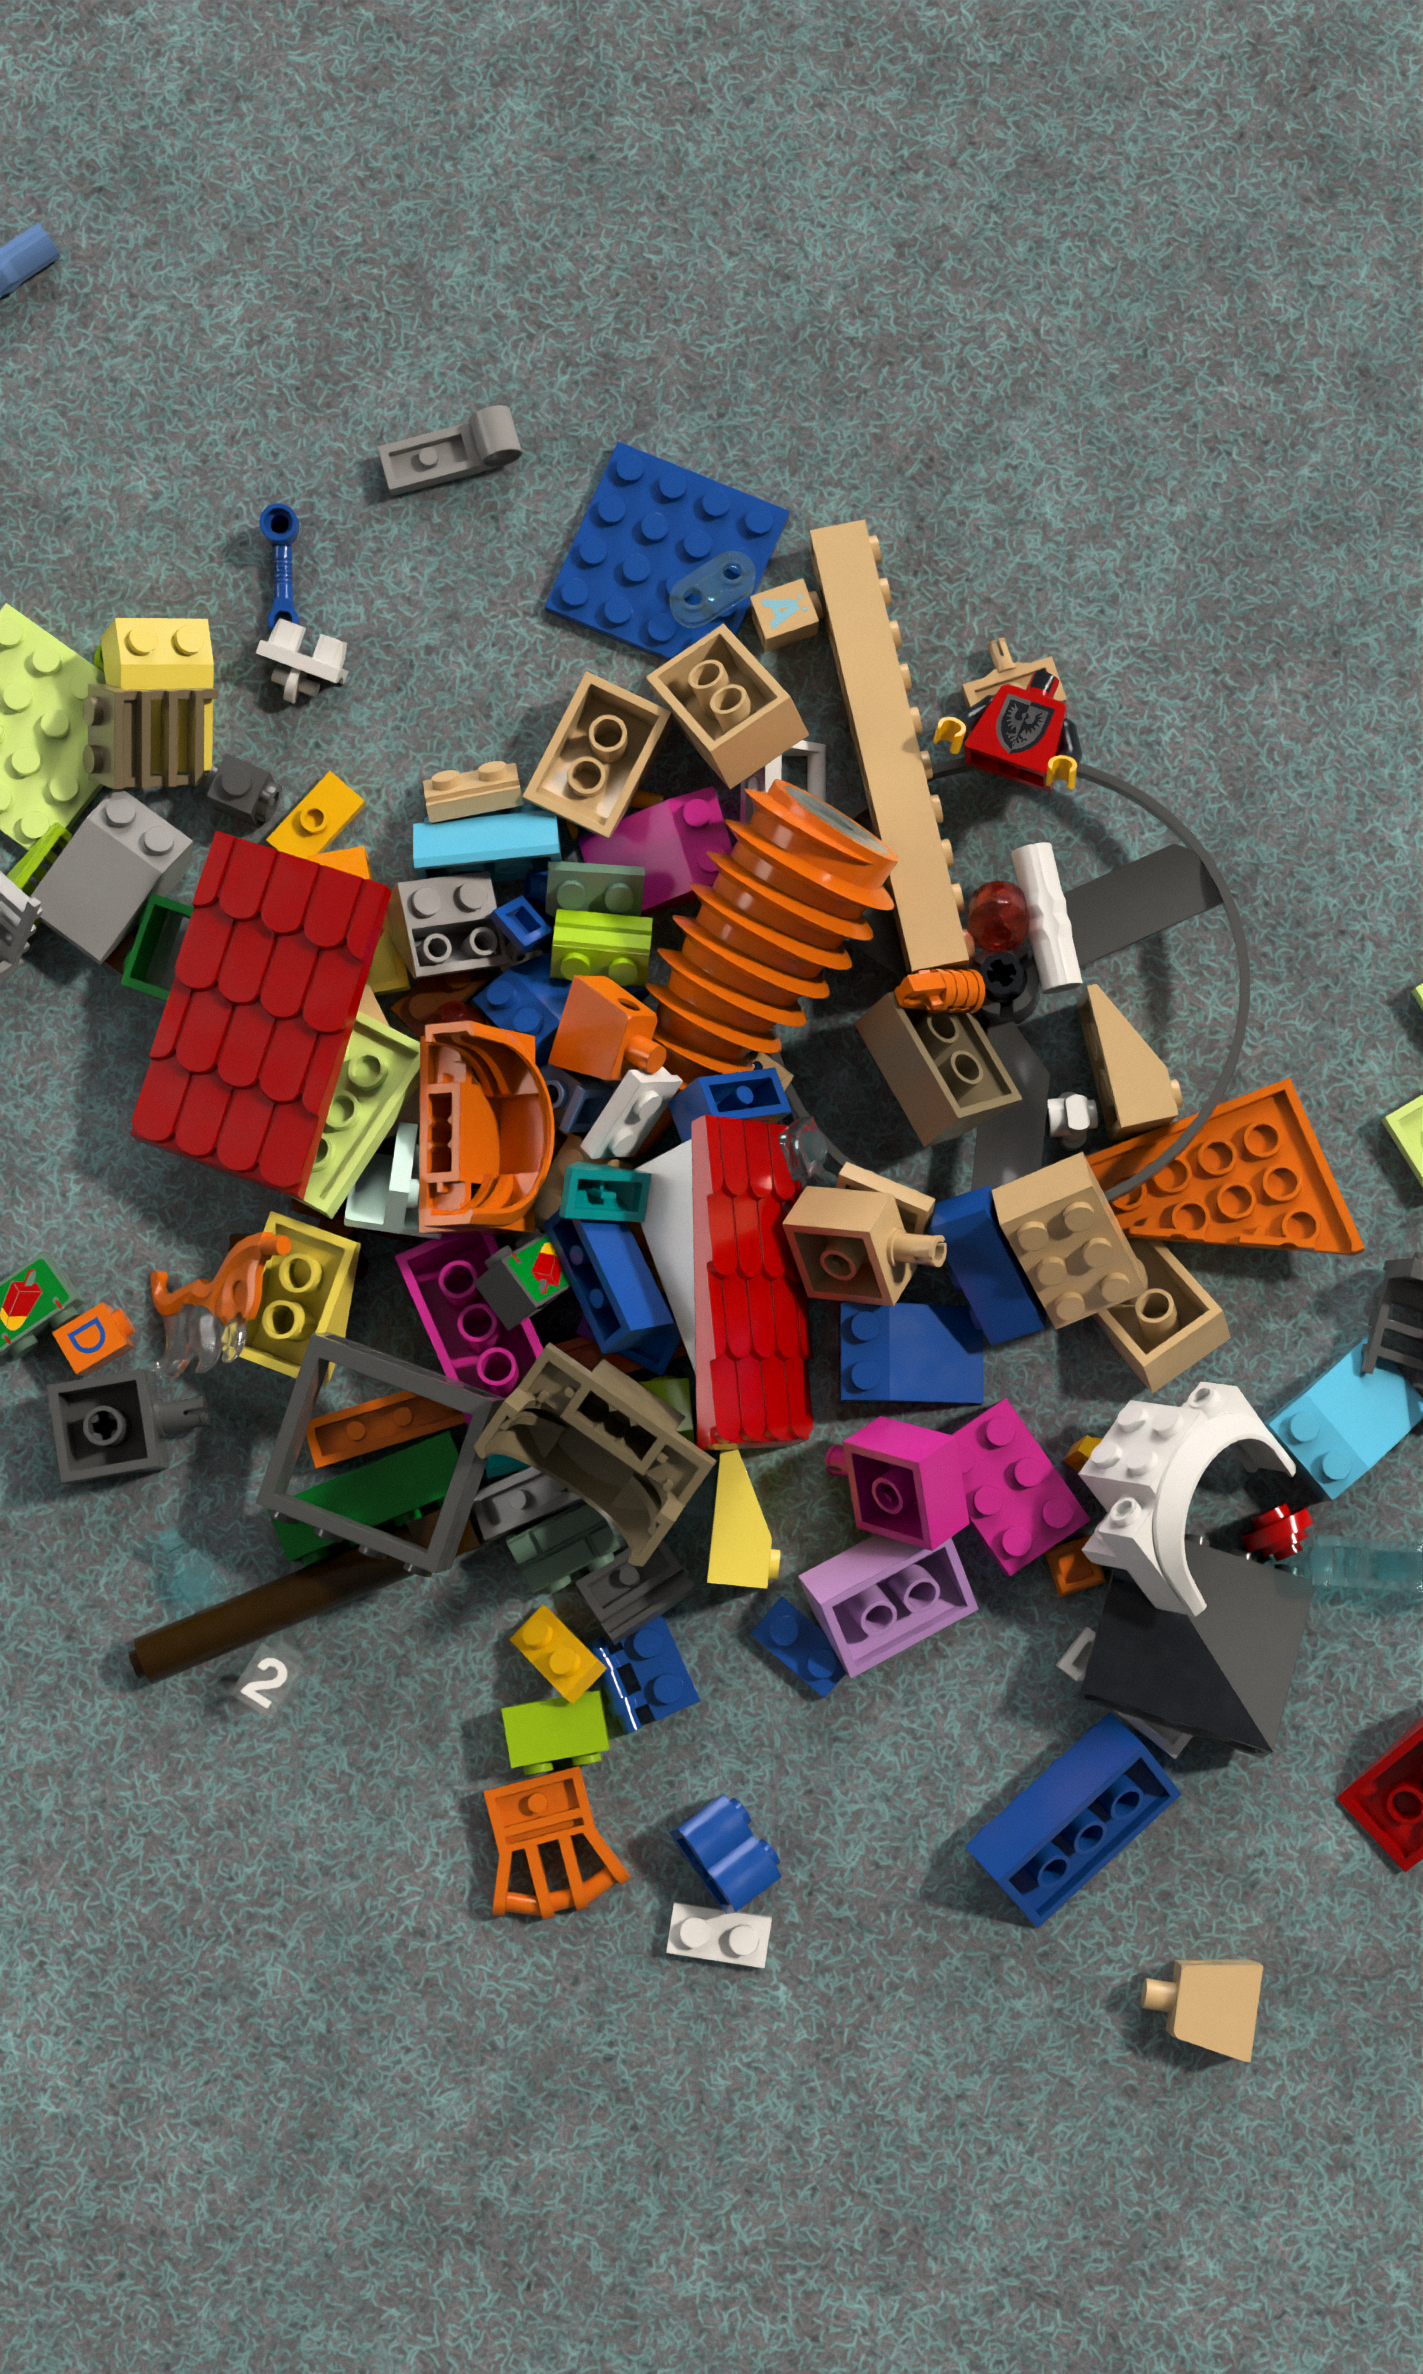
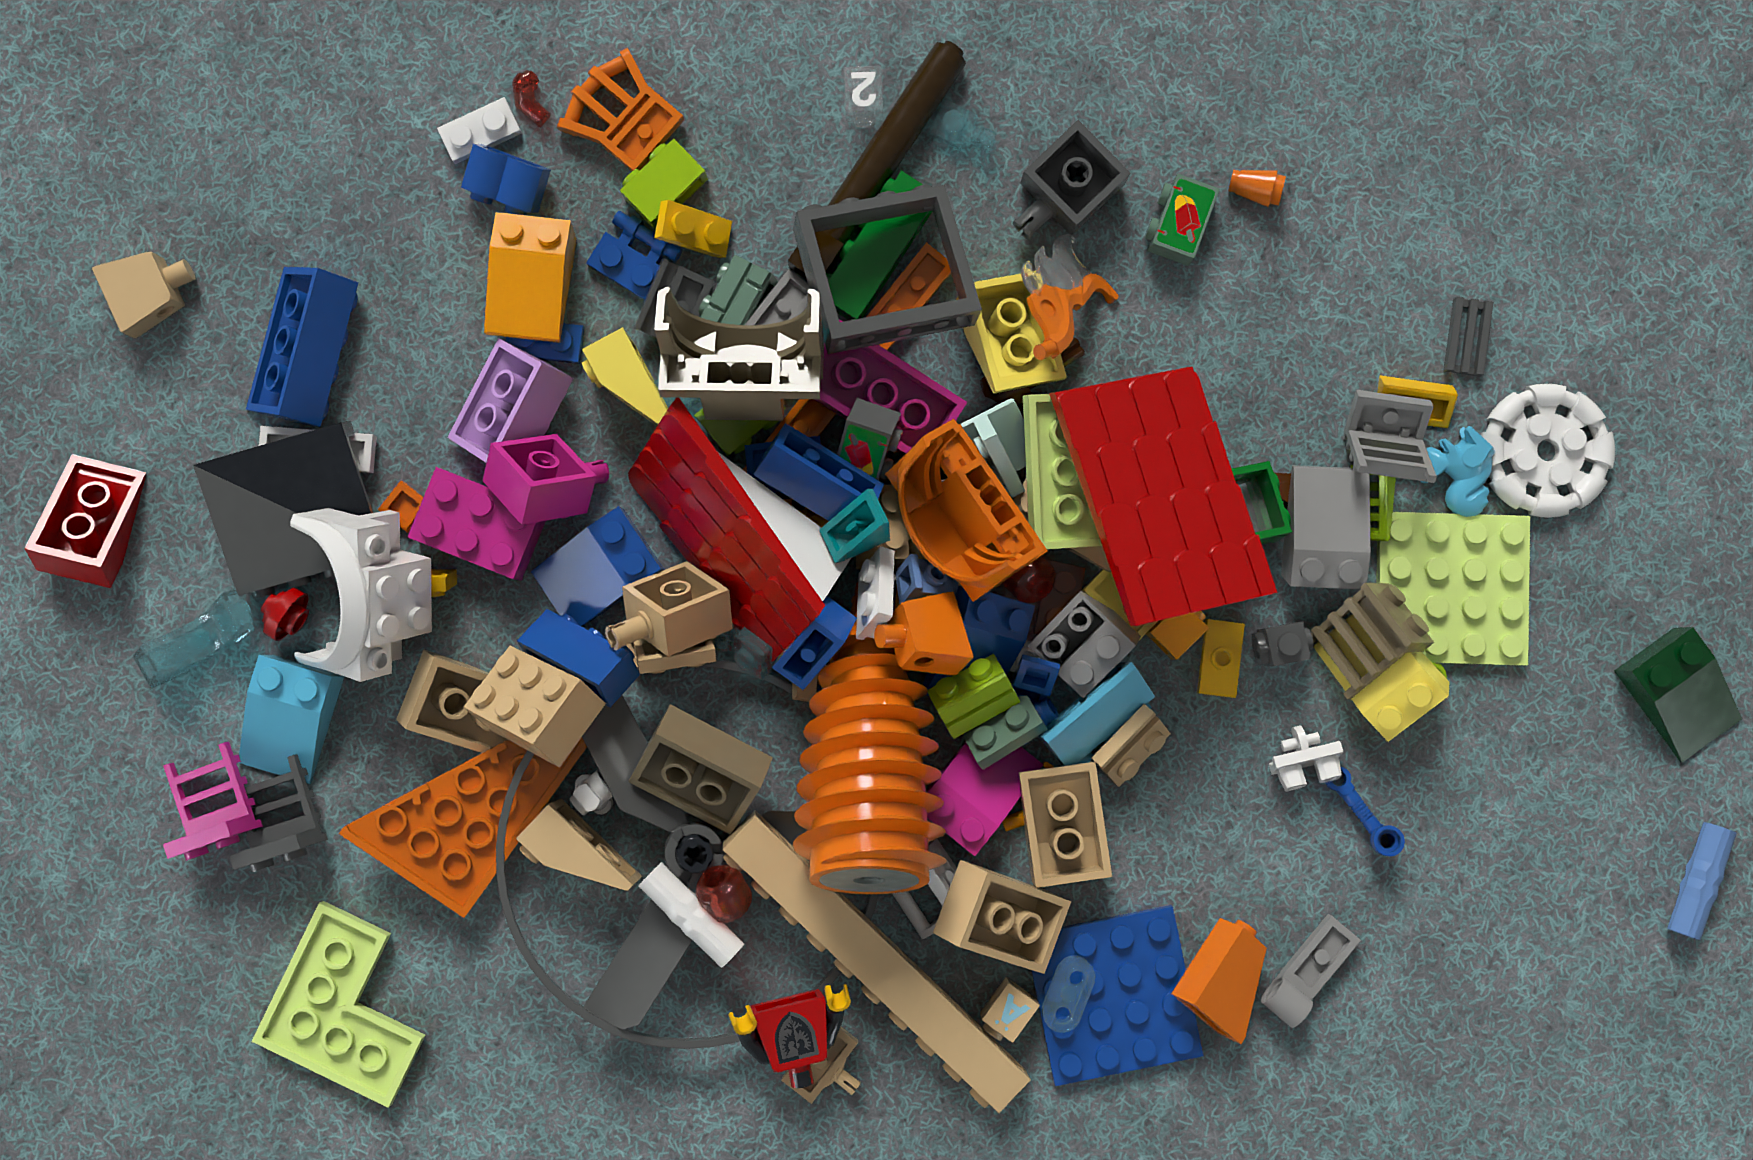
camera: 145 degrees right, 5 degrees up
(95, 1338) = (1123, 229): orange brick -> none
(542, 500) = (1224, 979): none -> orange slope
(644, 1936) = (524, 97): none -> clear red arm
(774, 1722) = (528, 276): none -> light orange slope
(942, 991) = (725, 816): orange hinge -> none

